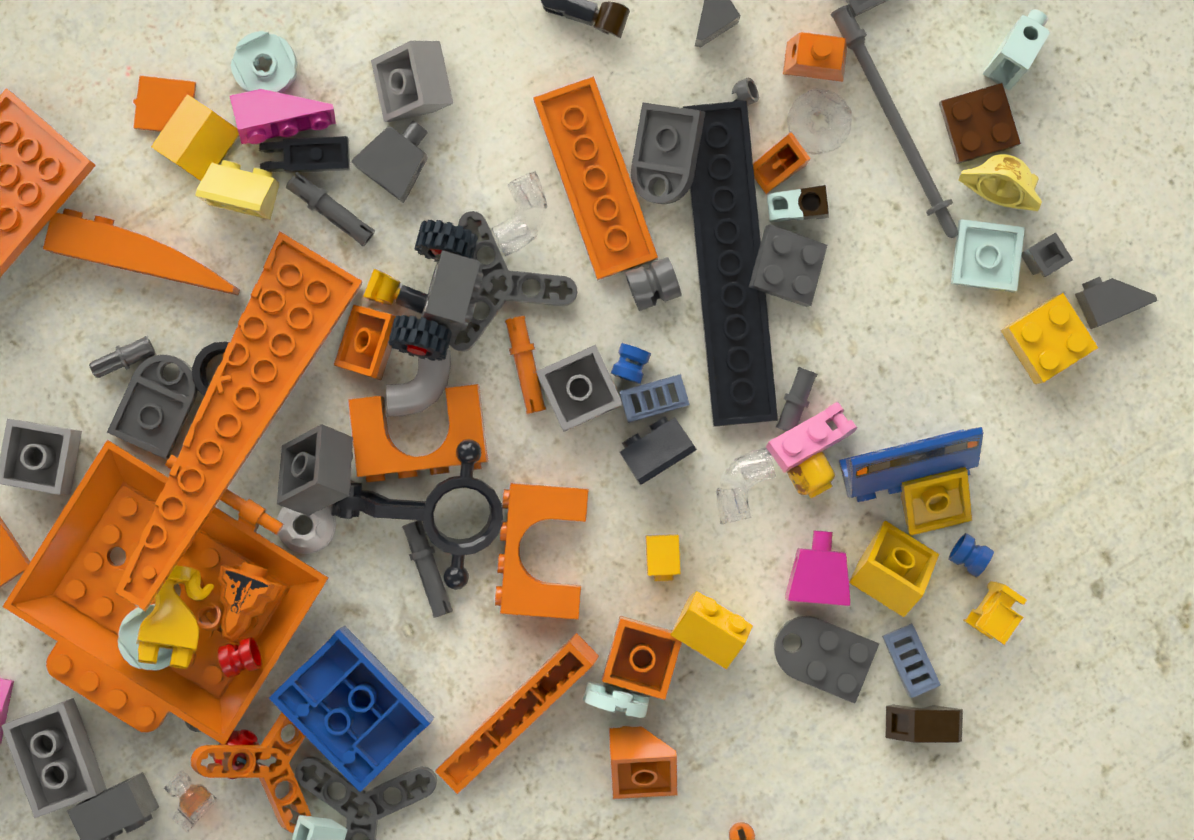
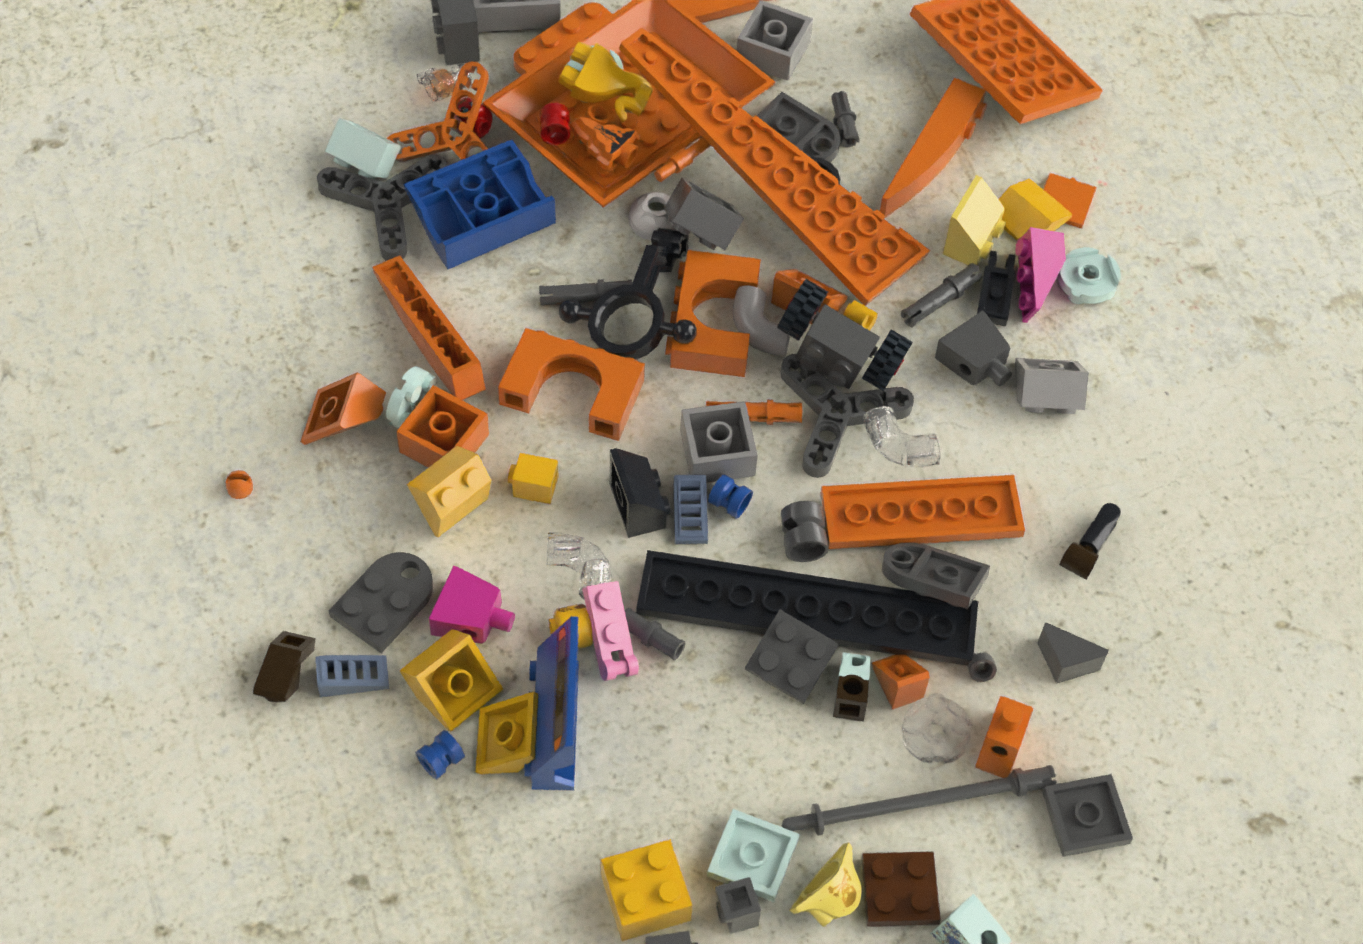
camera: 100 degrees right, 30 degrees down
(994, 614) = (373, 750): yellow piece -> none

